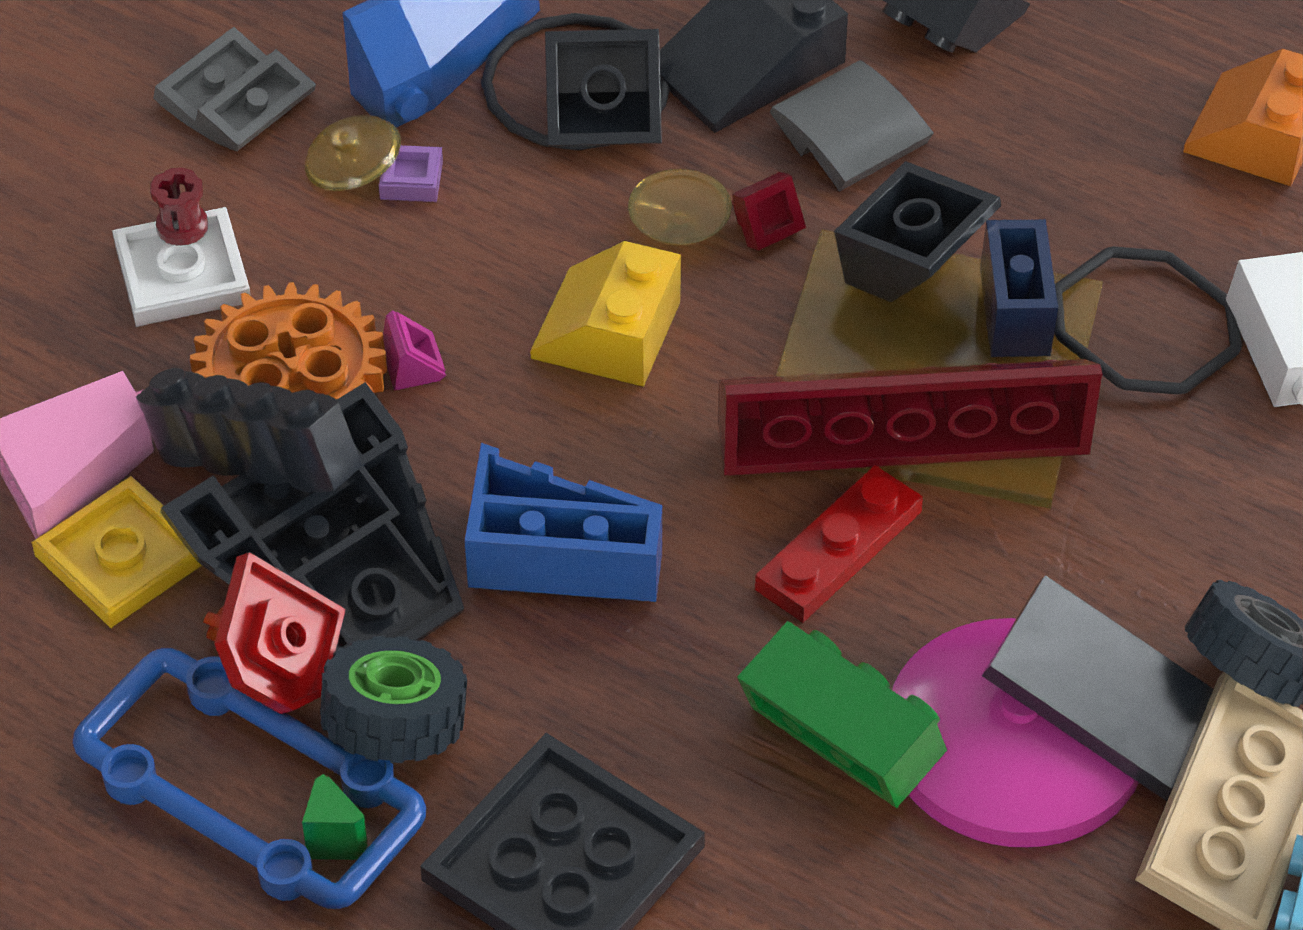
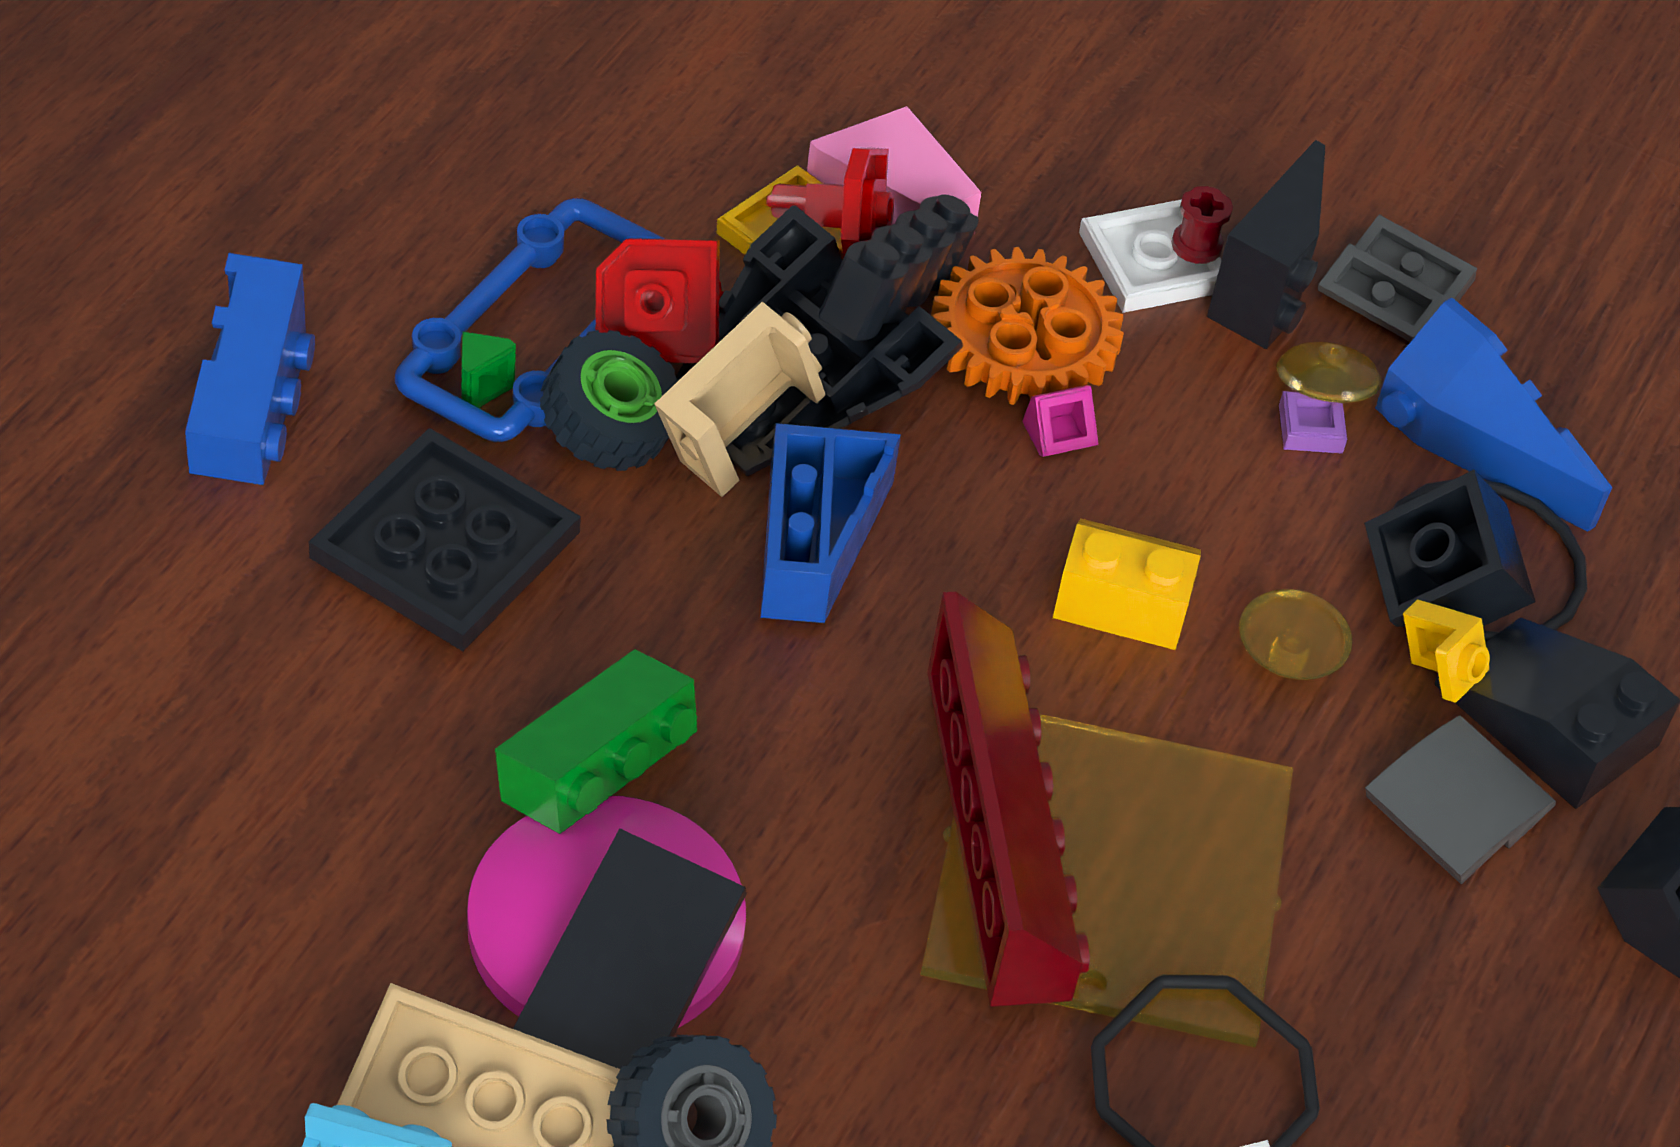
camera: 80 degrees right, 0 degrees up
(152, 464) = (854, 207): none -> red piece
(229, 138) = (1271, 256): none -> black slope
(417, 576) = (734, 388): none -> tan panel
(702, 95) = (1447, 644): none -> yellow bracket
(768, 210) = (1299, 709): dark red tile -> none
(838, 543) = (848, 772): red plate -> none
(909, 230) = (1257, 802): black slope -> none
(1018, 288) = (1193, 914): dark blue brick -> none

